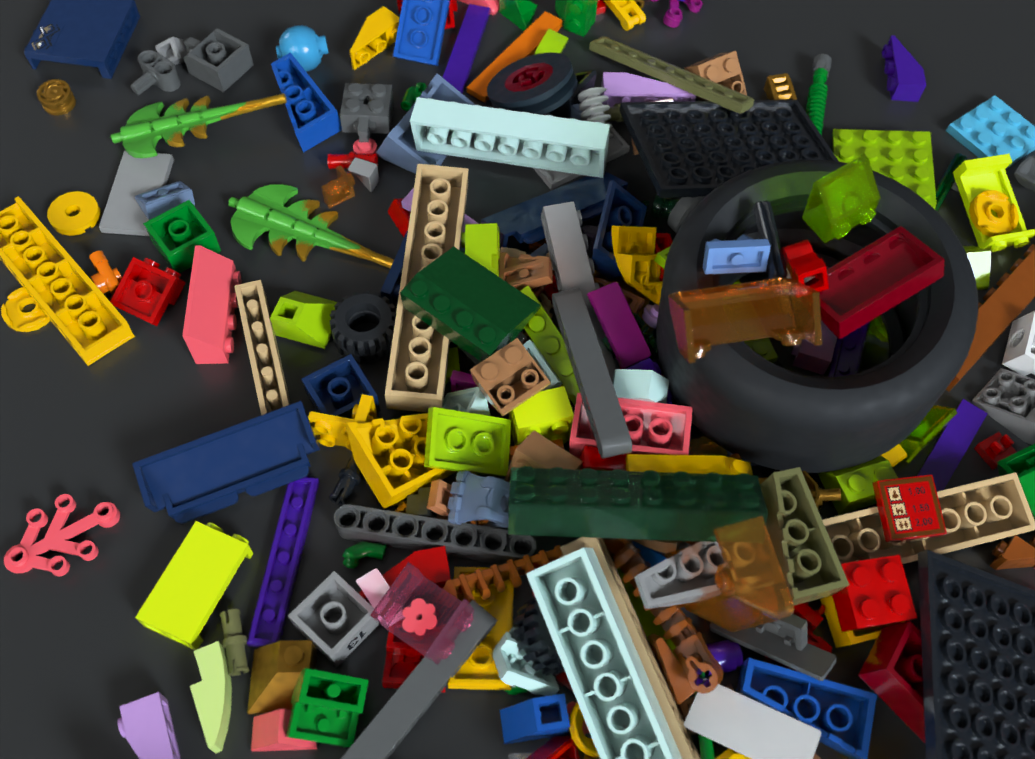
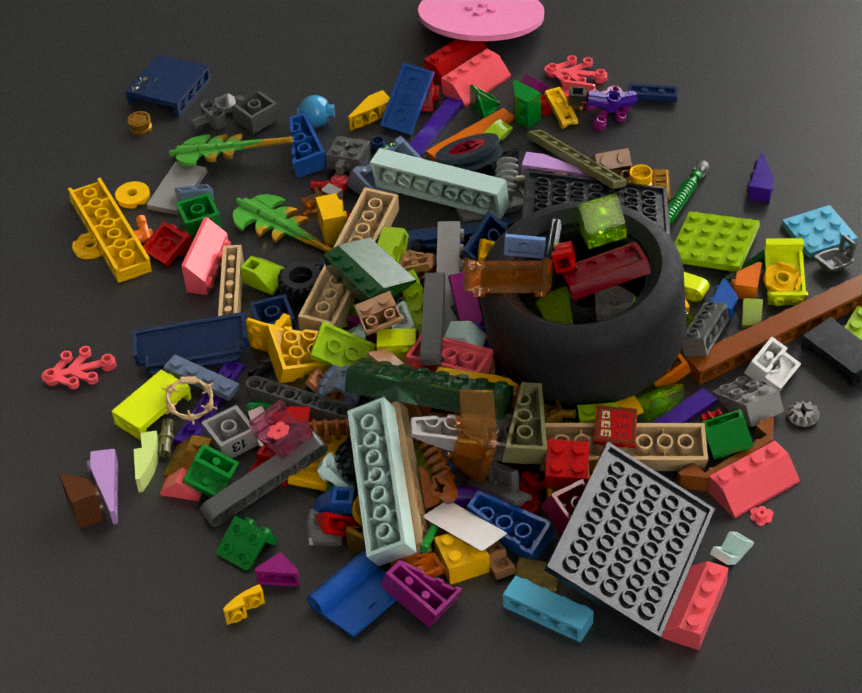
camera: 20 degrees right, 15 degrees down
(244, 539) = (189, 380): none -> tan piece
(261, 520) = (222, 386): none -> sand blue plate
(377, 214) = (331, 217): none -> yellow brick
(399, 83) = (377, 142): none -> dark blue plate
(762, 86) = (641, 175): none -> yellow wheel
(957, 218) = (747, 281): none -> orange slope

